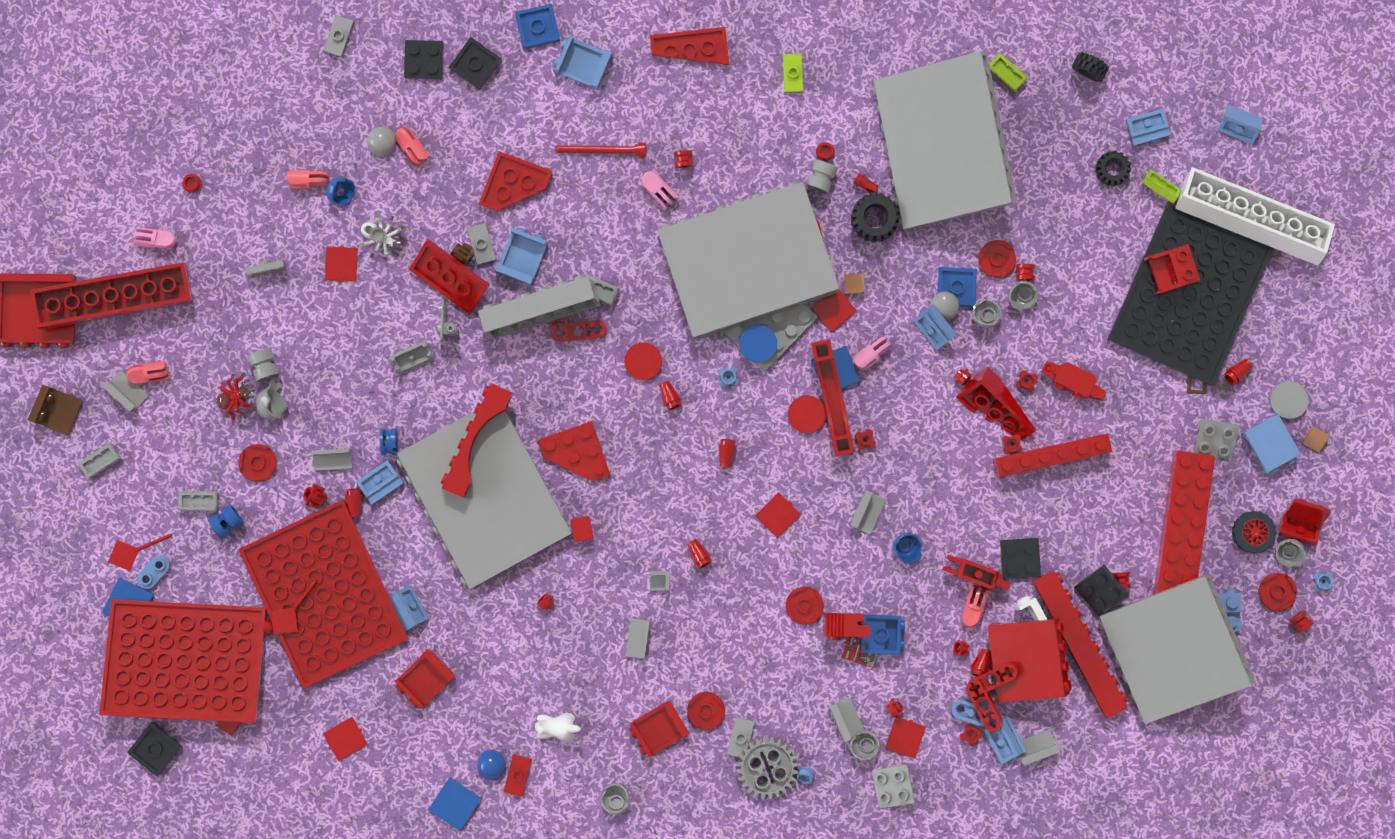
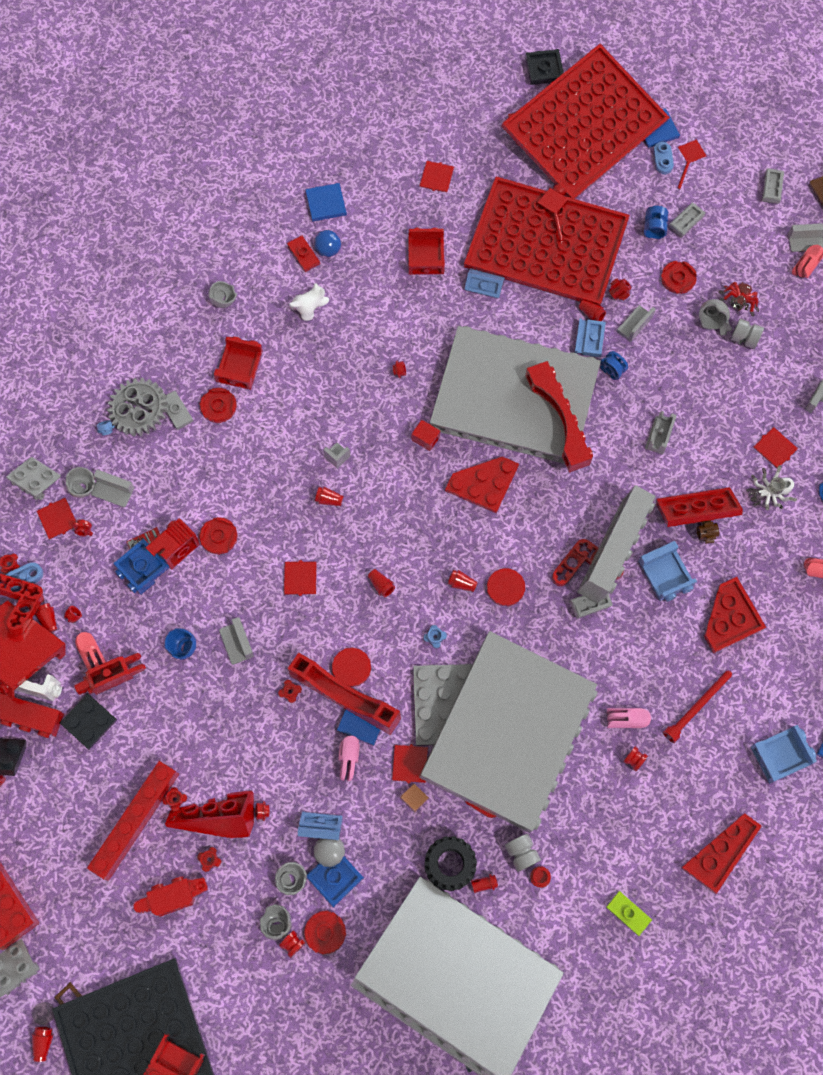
camera: 135 degrees right, 15 degrees down
(445, 329) = (664, 469): light grey hinge -> none
(481, 244) = (703, 553): light grey plate -> none
(637, 638) = (312, 405): light grey panel -> none
(758, 343) = (438, 678): blue tile -> none

